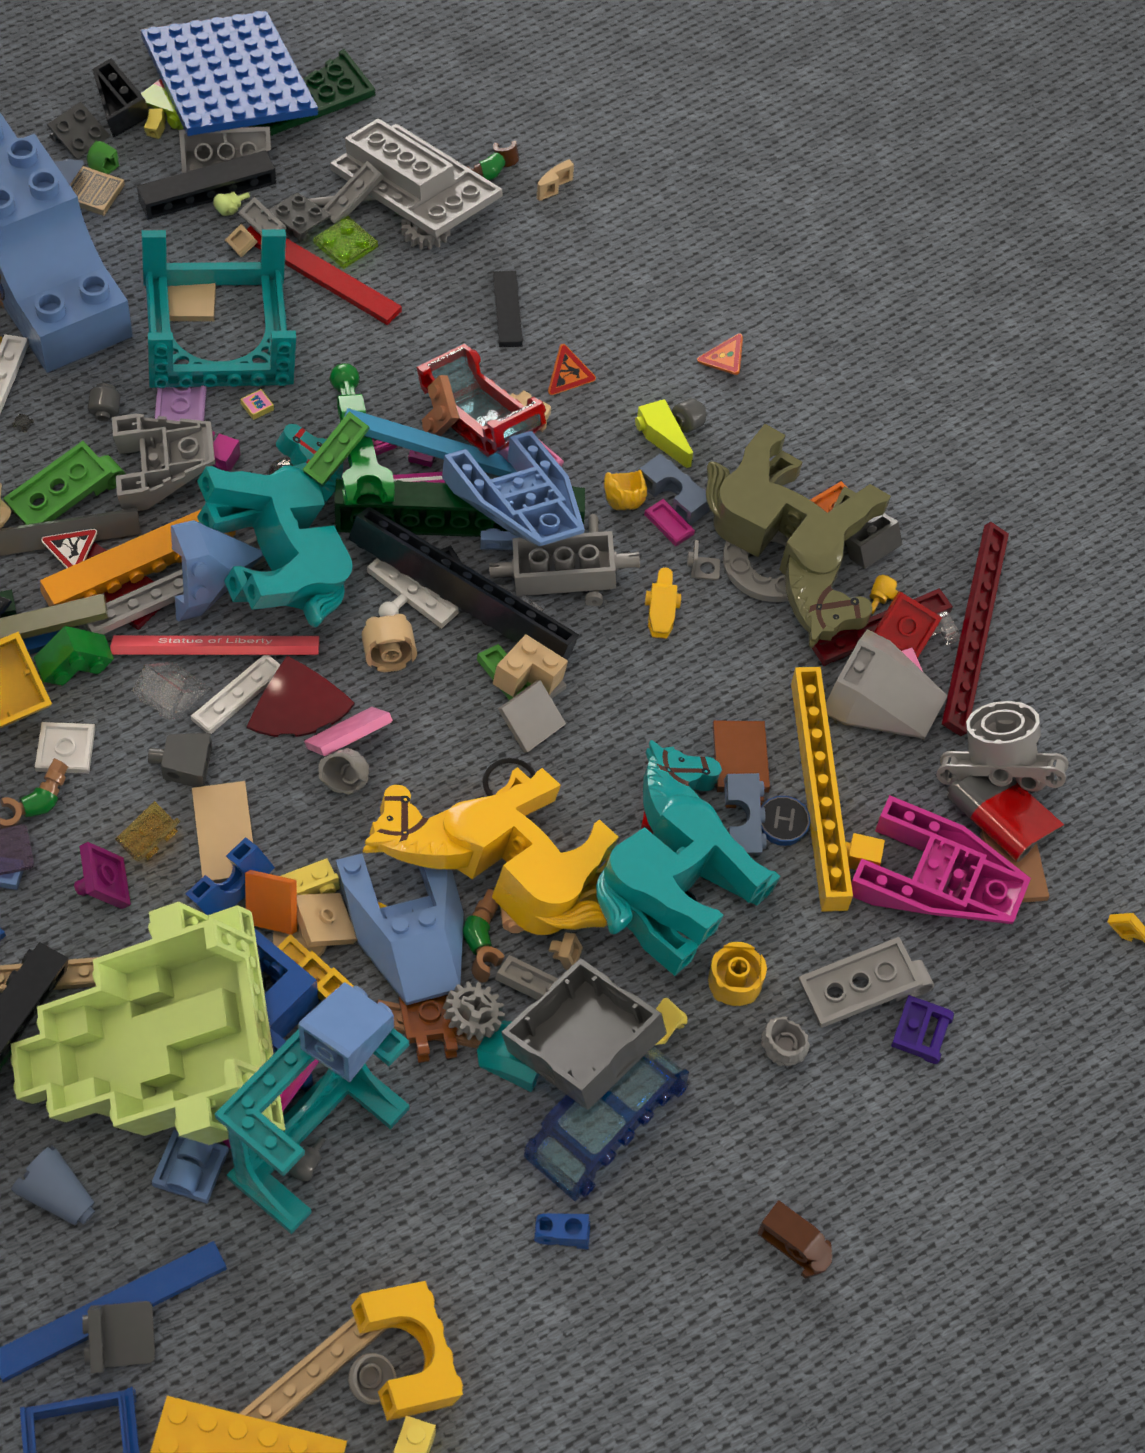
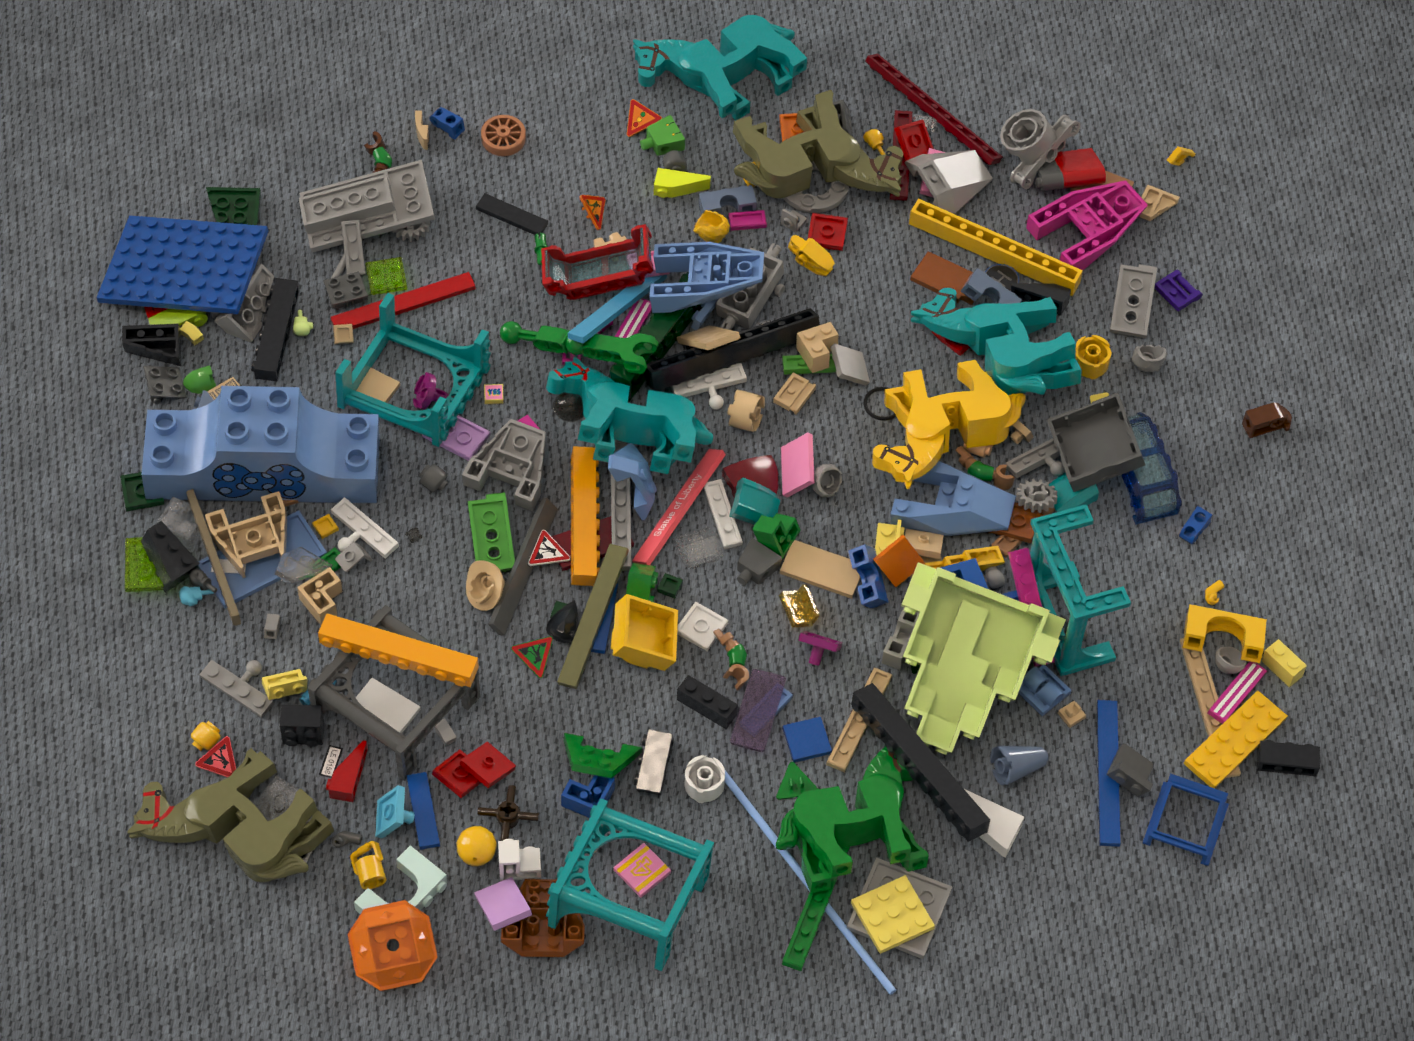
camera: 55 degrees left, 0 degrees up
(100, 688) = (670, 585): none -> dark green plate
(176, 1221) = (1072, 714): none -> tan tile
(211, 343) = (427, 391): none -> magenta tile
(231, 759) = (776, 532): none -> green brick
(259, 216) = (339, 311): light grey plate -> none
(263, 713) = (753, 501): none -> teal slope
(328, 1415) = (1237, 692): none -> dark pink tile
(336, 448) = (597, 354): bright green plate -> none
(345, 1030) = (1069, 526): medium blue slope -> none
(444, 407) = (587, 287): nougat plate -> none
(454, 551) = (708, 337): none -> tan tile
(455, 682) = (794, 393): none -> tan plate
(472, 1304) = (1211, 592): none -> yellow arm
(488, 349) = (540, 243): none -> green axle
(582, 198) = (448, 122): none -> blue leg
(606, 245) = (503, 130): none -> nougat wheel
(712, 605) = (828, 230): none -> red plate
(717, 388) = (663, 137): none -> bright green torso
(796, 886) = (1037, 291): none -> black slope
(864, 848) = (1052, 248): yellow brick -> none
(905, 403) = (744, 46): none -> teal animal
(1036, 935) = (1157, 201): none -> tan wing

